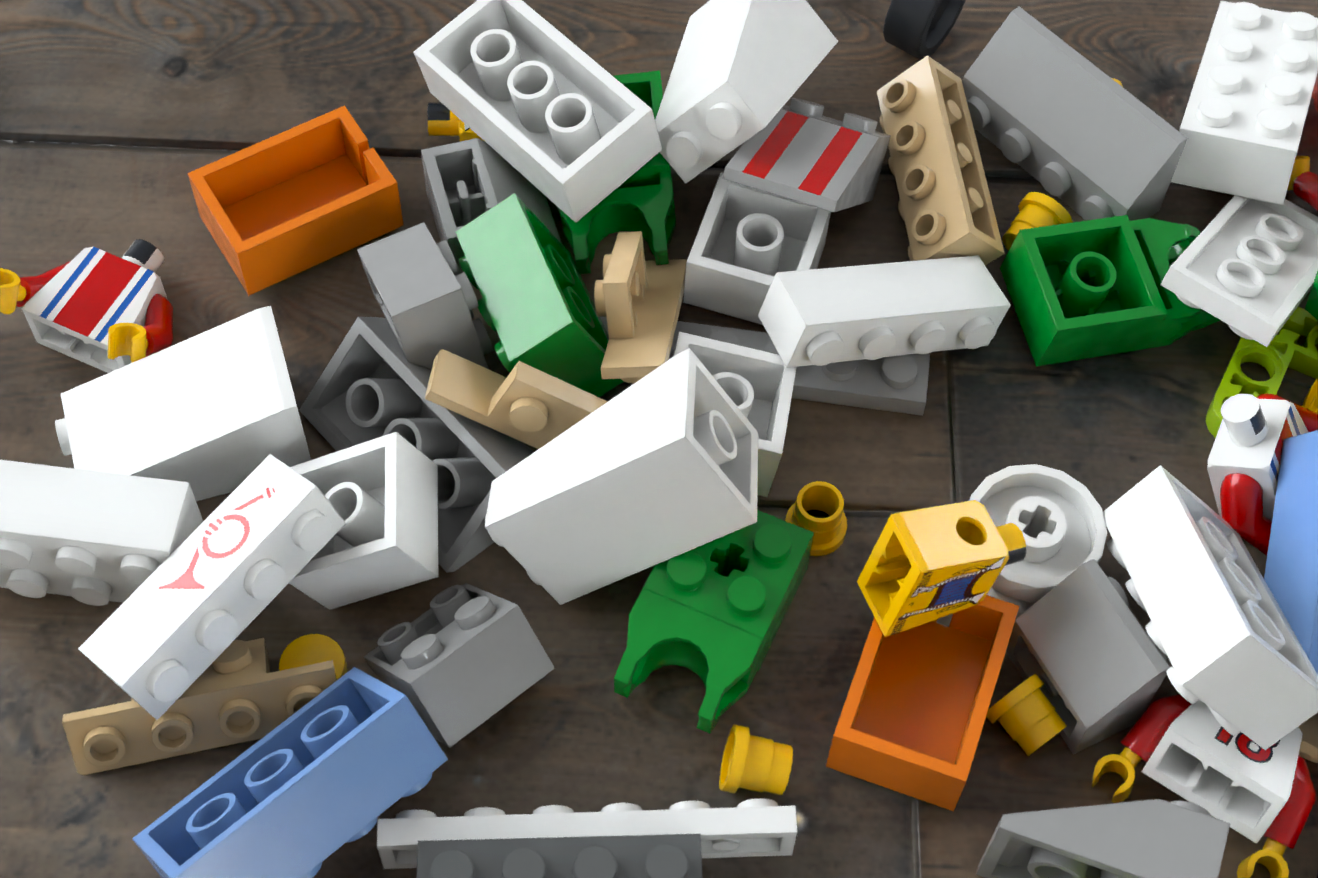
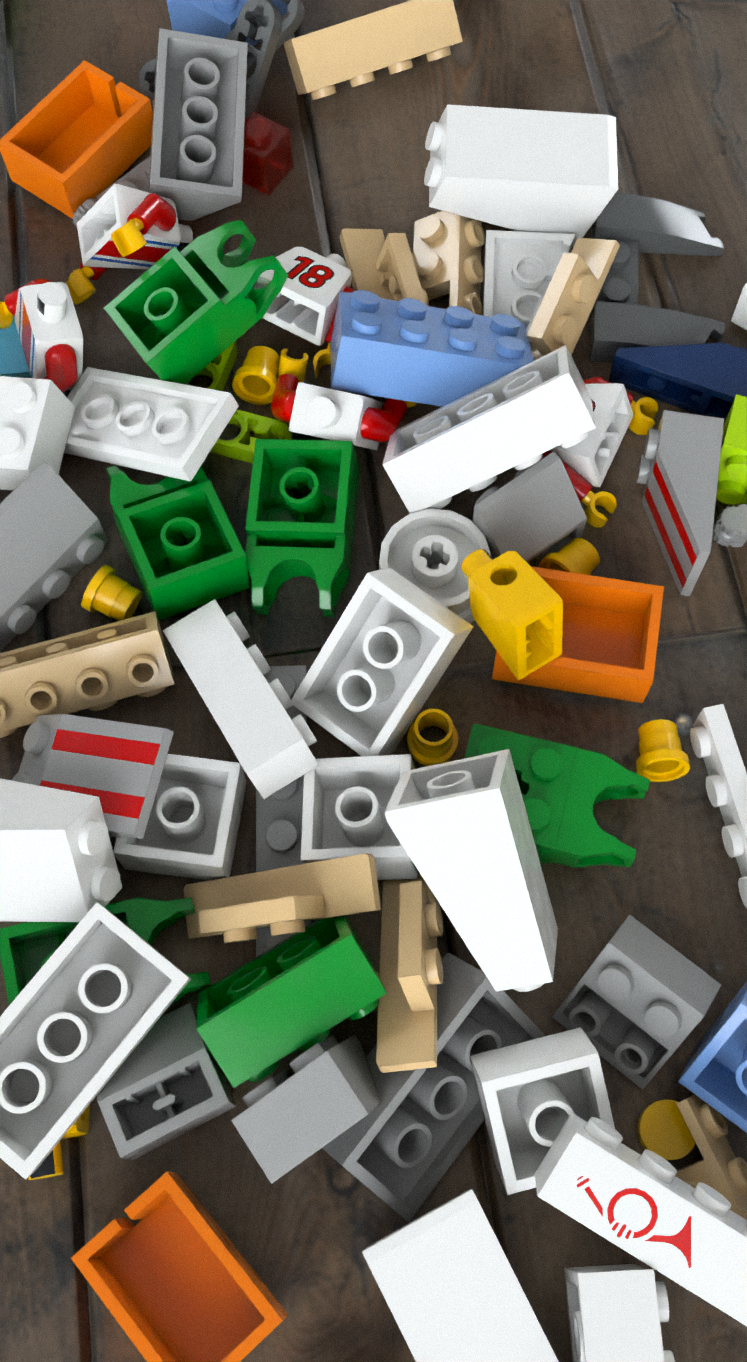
camera: 95 degrees left, 10 degrees up
(902, 441) = (380, 663): none -> white brick
(1110, 412) = (300, 534): none -> green brick

